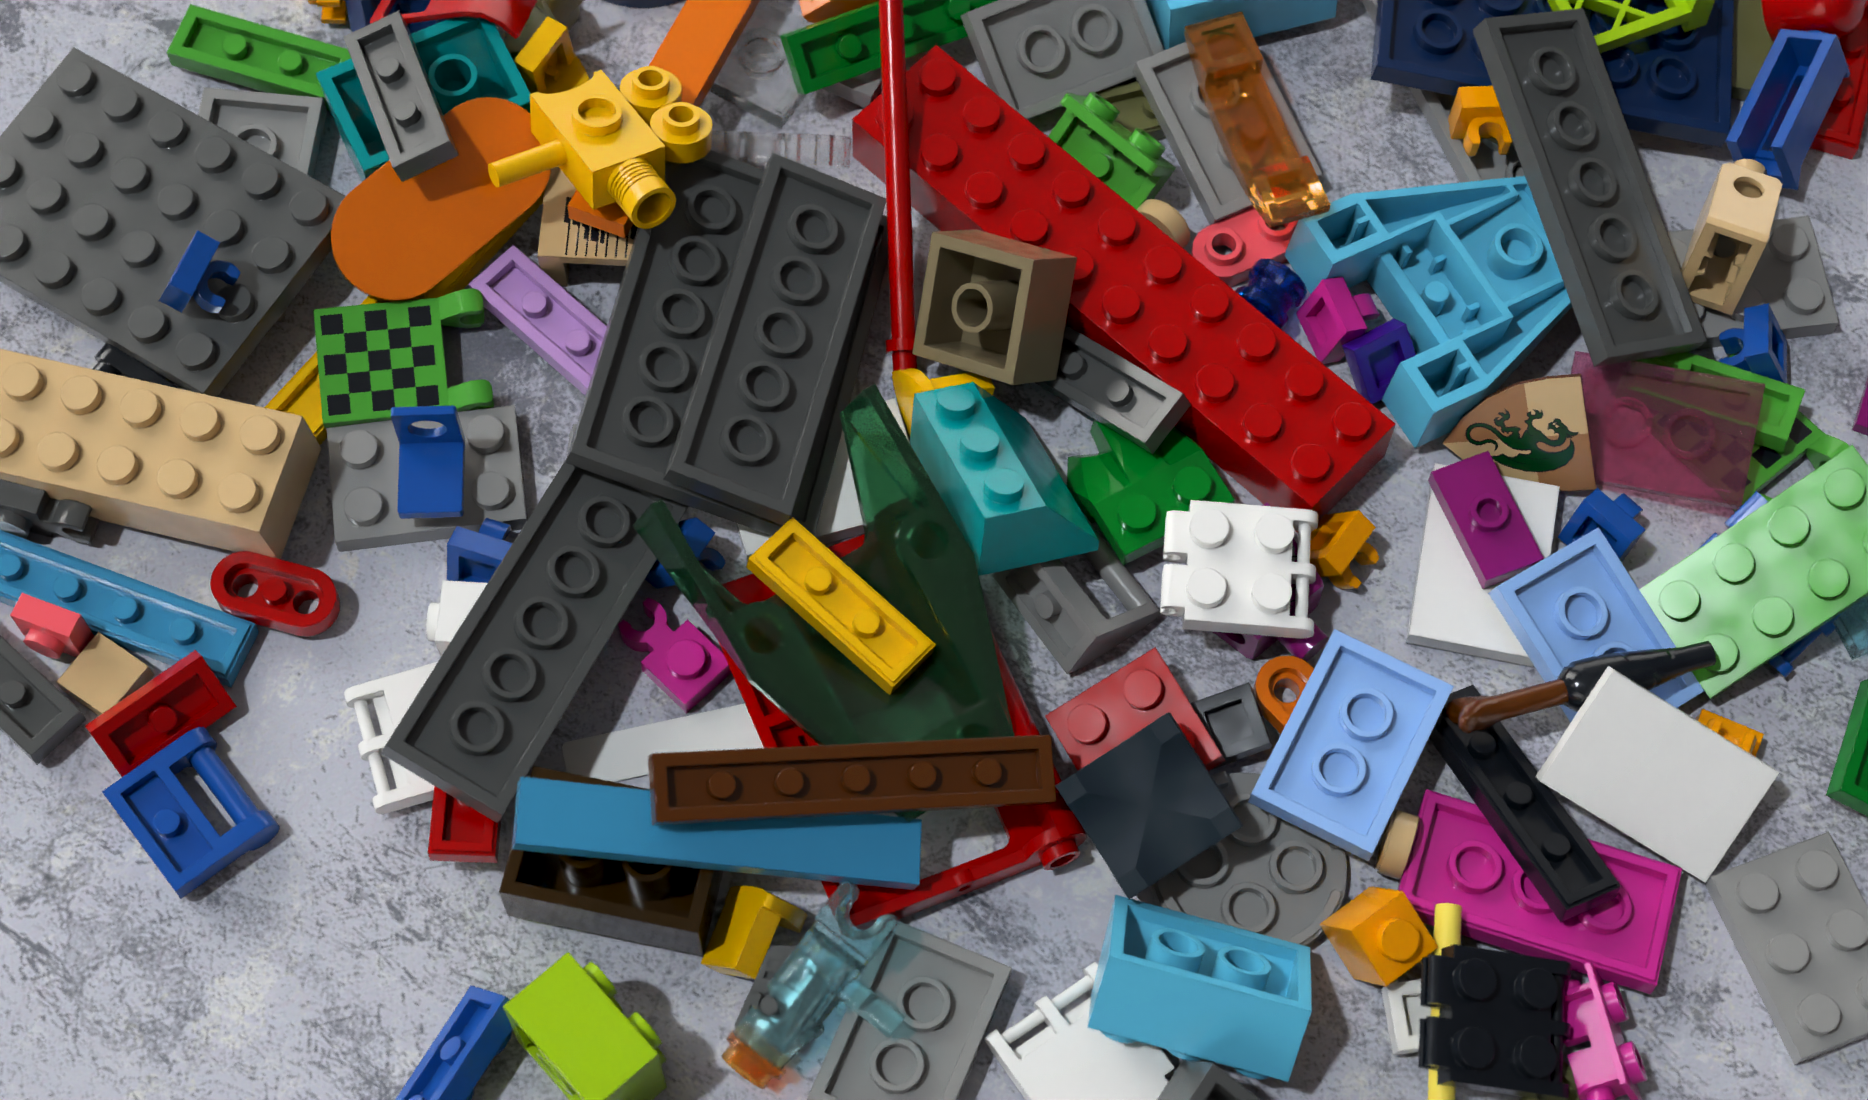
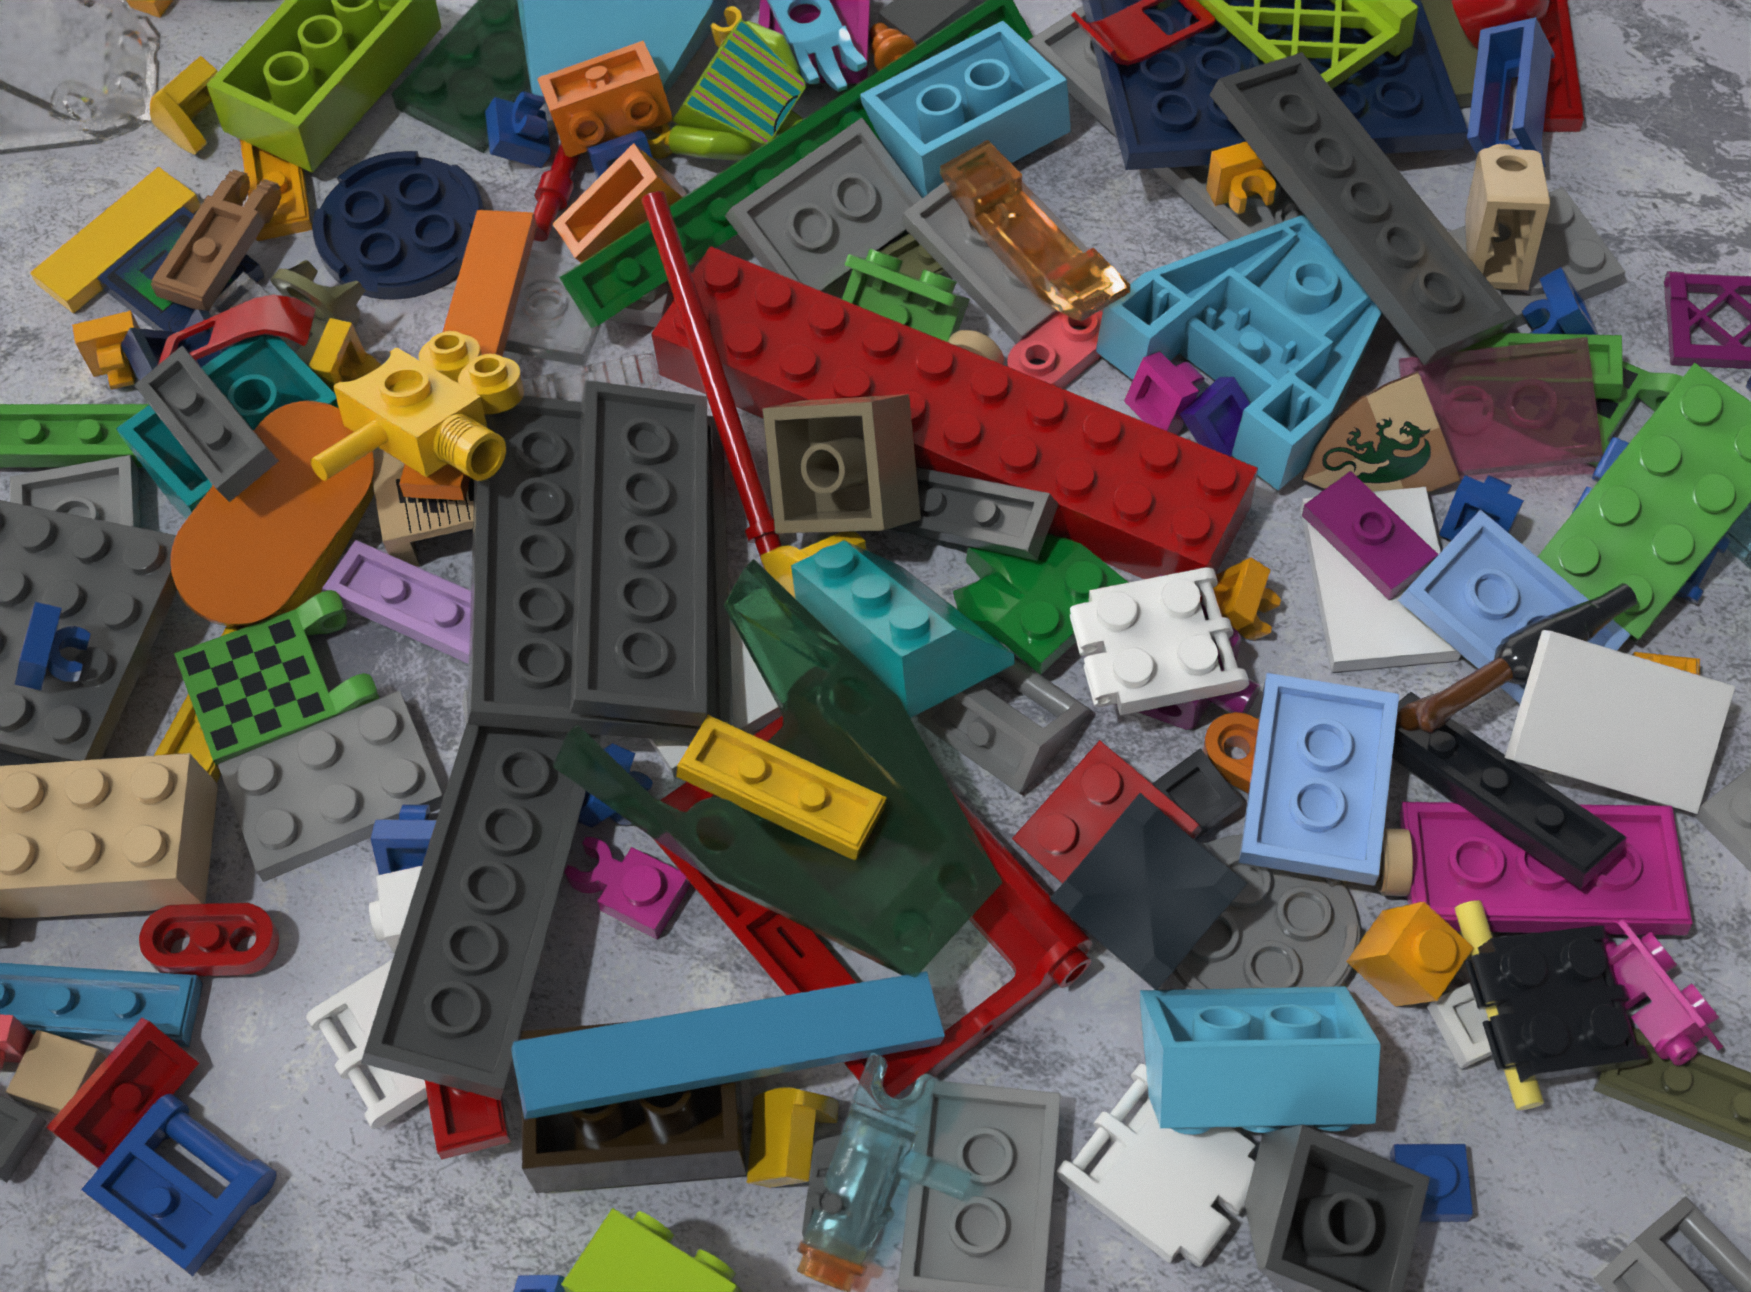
camera: 10 degrees left, 5 degrees down
(430, 462) = (331, 764): blue bracket -> none
(626, 752) = (646, 975): white sticker -> none
(850, 779) = (843, 950): reddish brown plate -> none
(1273, 290) = (1099, 379): clear blue wheel -> none

